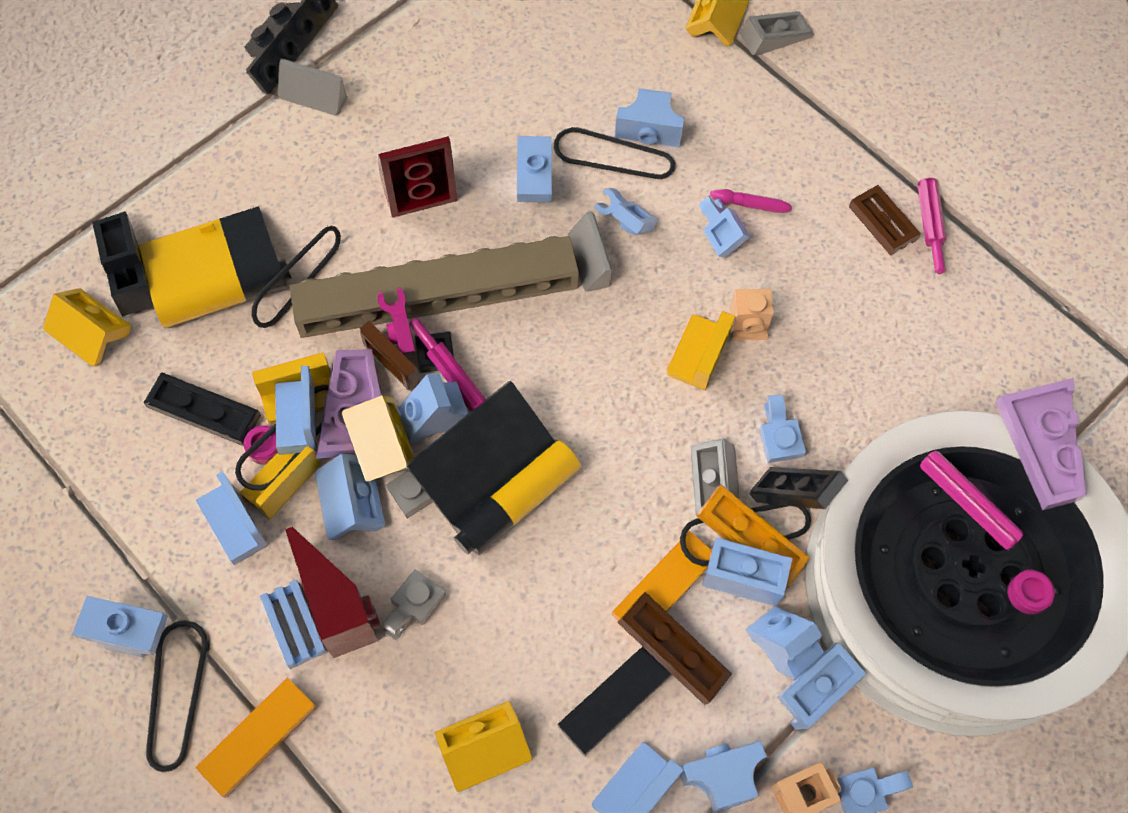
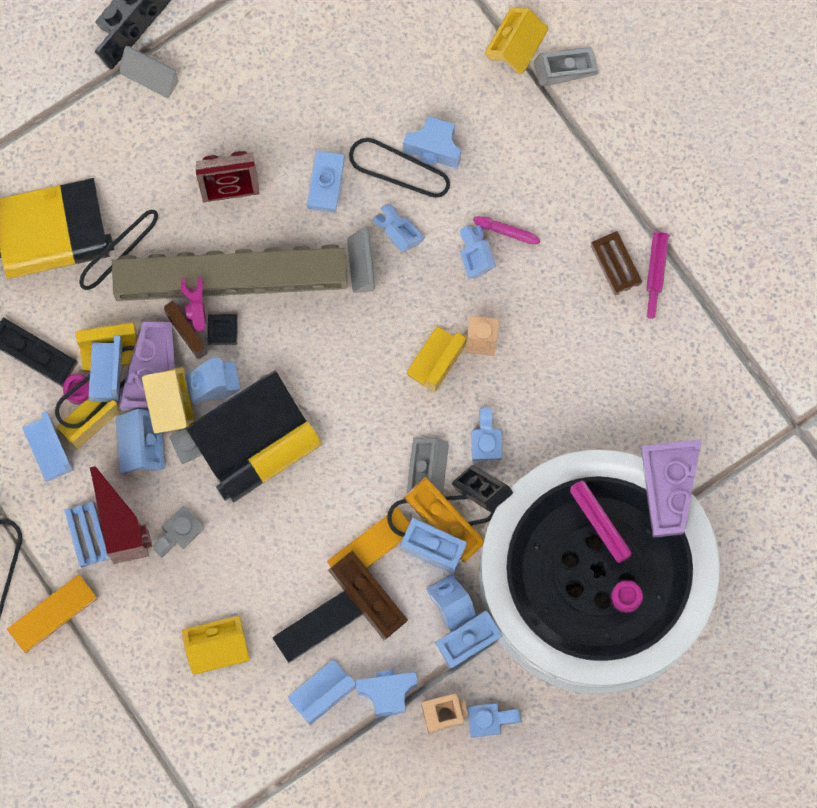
camera: 10 degrees right, 10 degrees up
(448, 366) = (231, 348): dark pink axle -> none

